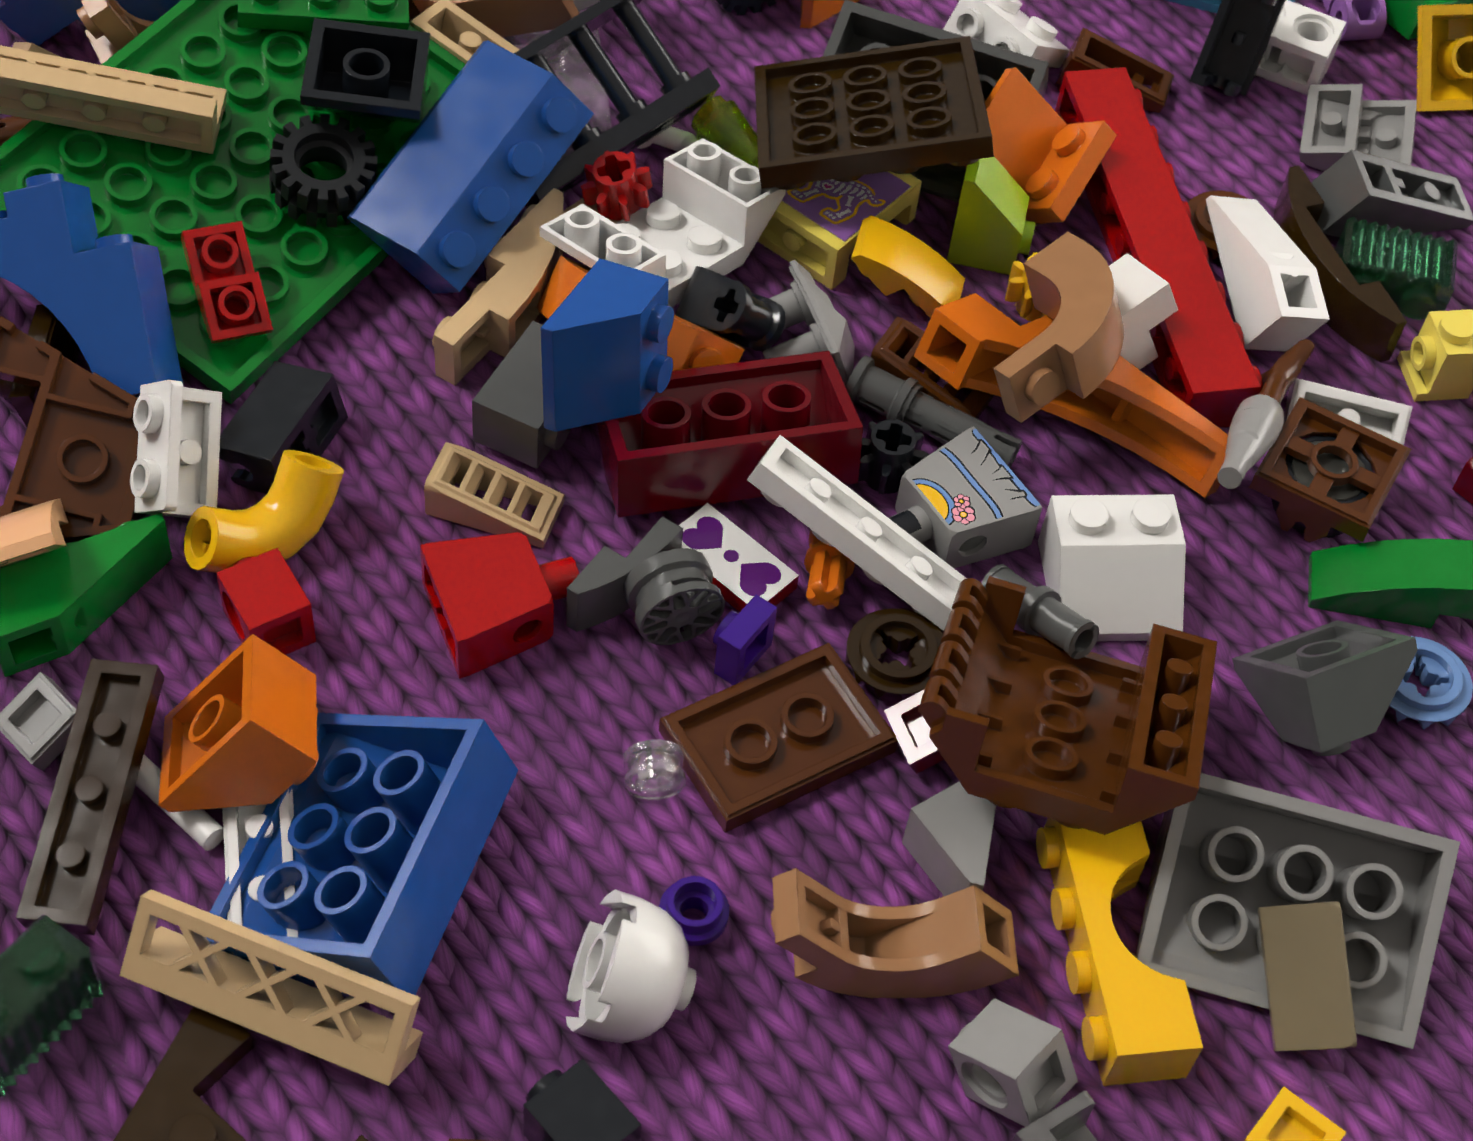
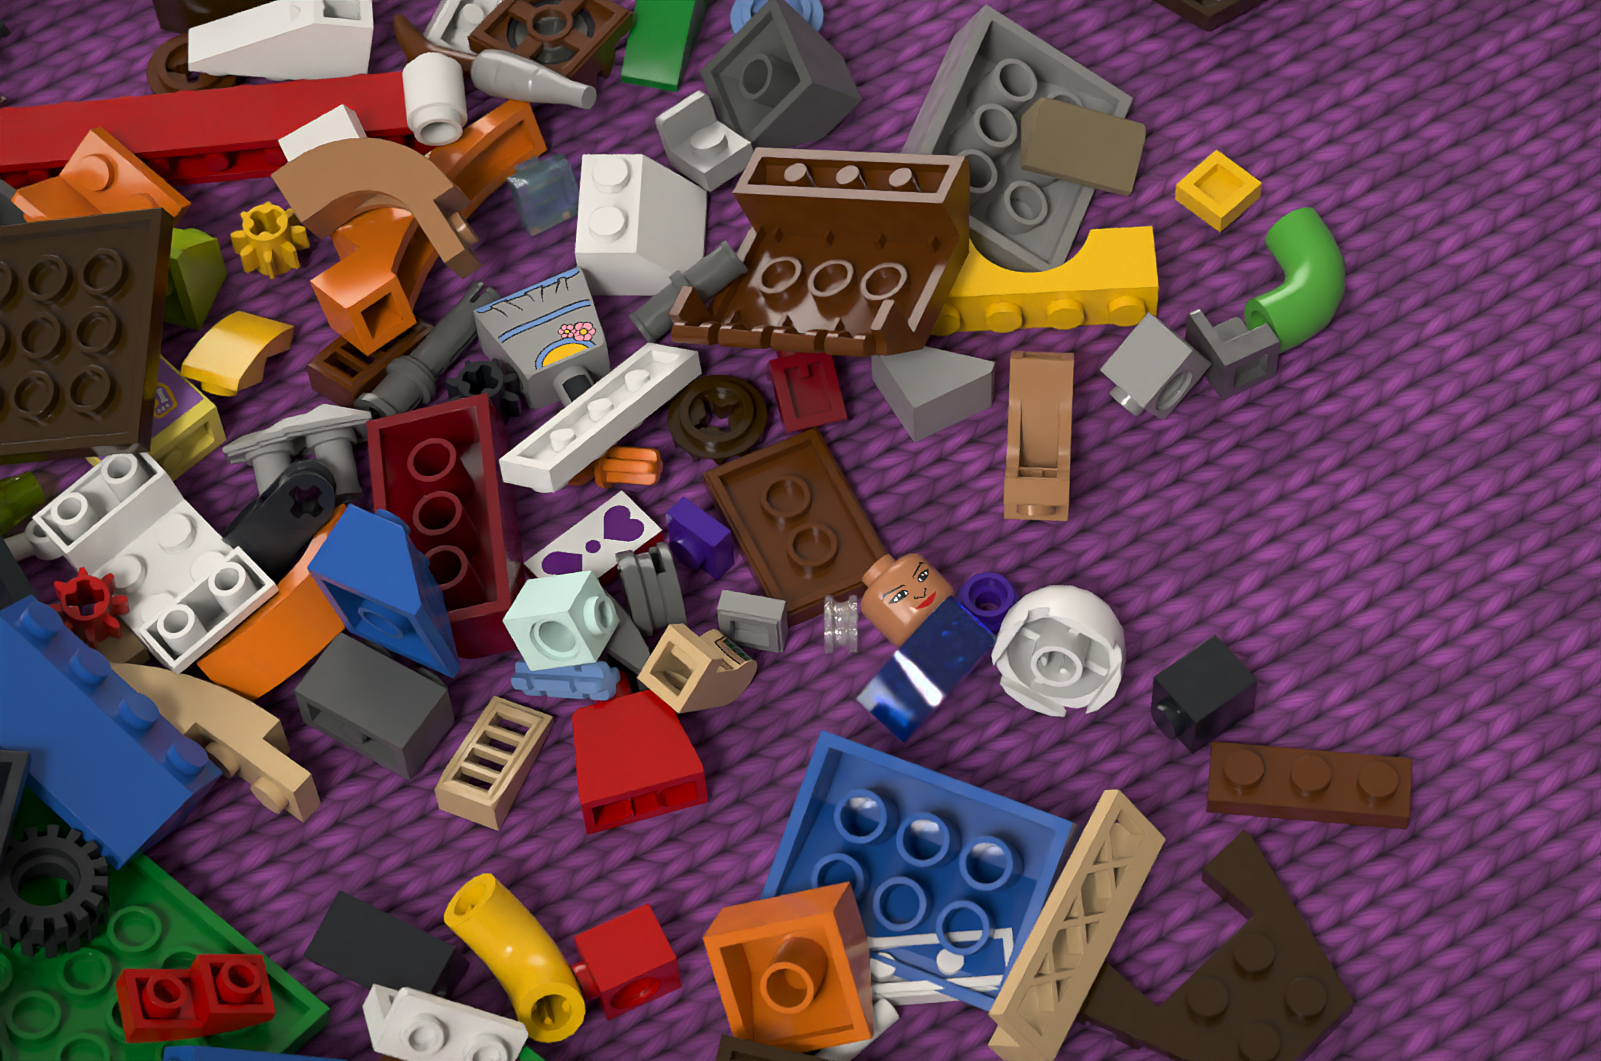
camera: 75 degrees left, 5 degrees up
(568, 533) = (575, 681): none -> medium blue axle
(578, 635) = (705, 668): none -> tan leg
(594, 841) = (927, 668): none -> clear blue slope
(612, 506) = (561, 620): none -> light aqua brick
(649, 689) = (753, 620): none -> light grey tile
(683, 826) = (902, 595): none -> nougat head
(1140, 474) = (544, 192): none -> clear light blue tile
(1207, 365) = (435, 99): none -> white brick
(1237, 614) = (701, 144): none -> light grey bracket

